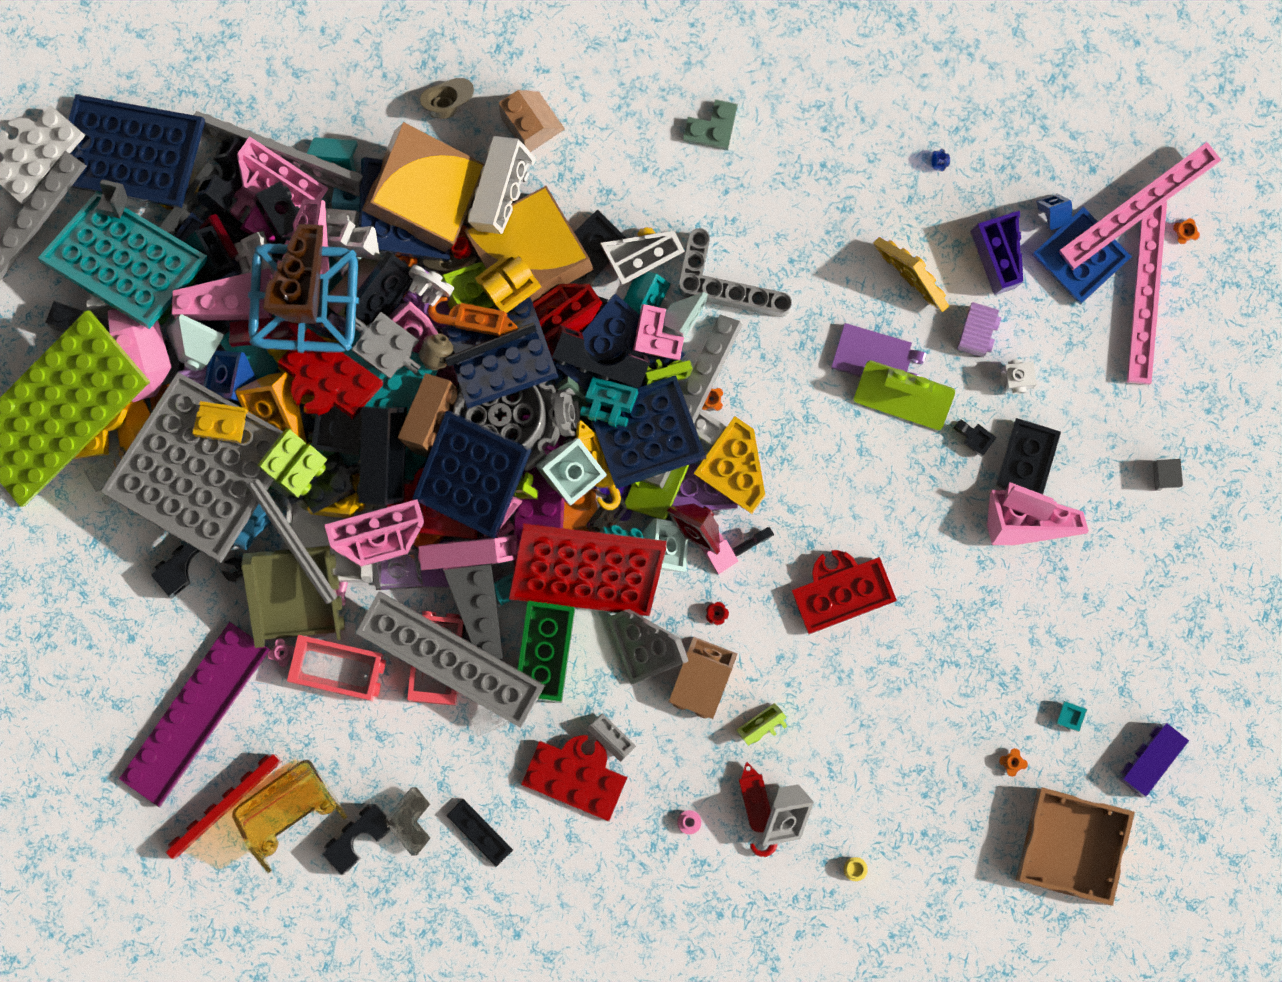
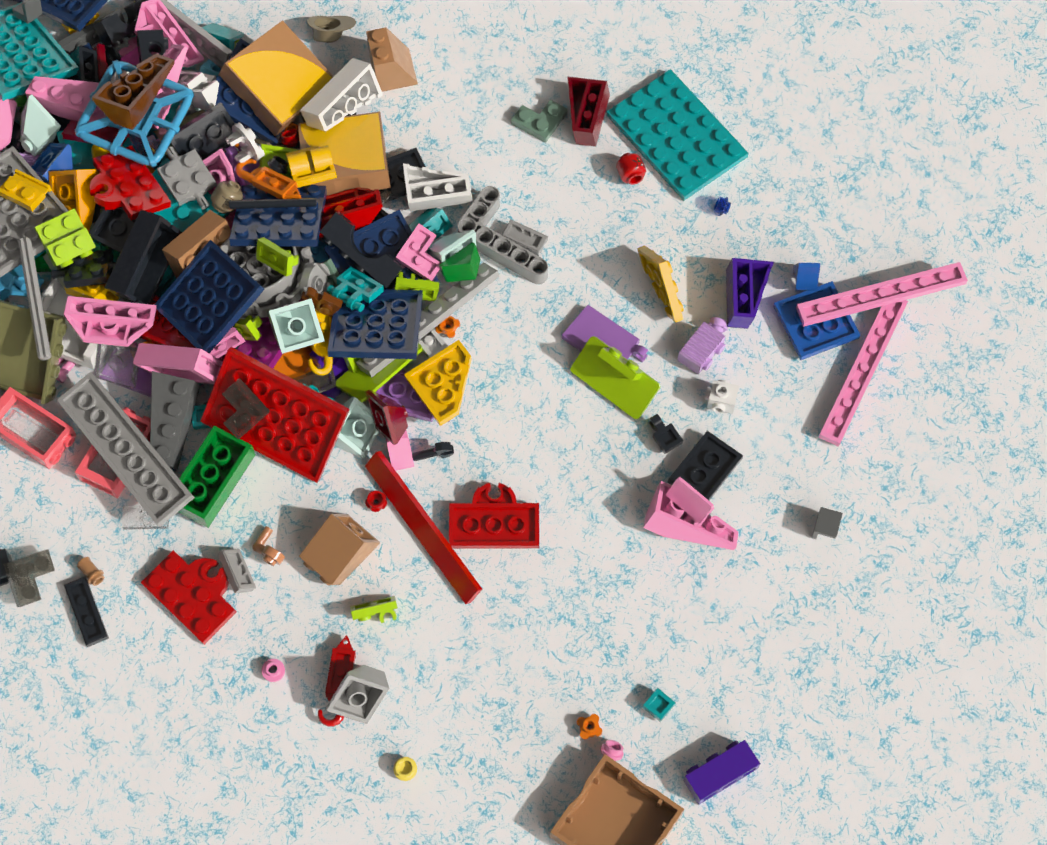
camera: 25 degrees right, 15 degrees down
(466, 791) = (91, 571): none -> medium nougat pin
(472, 294) = (278, 164): none -> black plate
(522, 407) = (276, 257): none -> lime plate
(560, 577) = (248, 406): none -> clear smoke plate
(590, 433) = (322, 302): none -> reddish brown plate
(638, 710) = (270, 554): none -> nougat plate
(645, 646) = (299, 502): light grey plate -> none
(704, 330) = (461, 265): none -> green slope
(751, 271) = (525, 237): none -> light grey plate
(760, 97) = (588, 108): none -> dark red wedge
(775, 623) = (423, 527): none -> red tile
(831, 152) = (631, 168): none -> red head
(862, 91) = (677, 134): none -> teal plate
(984, 298) = (719, 324): none -> lavender plate
(1044, 777) = (612, 749): none -> bright pink plate
(1192, 233) = (921, 328): orange plate -> none

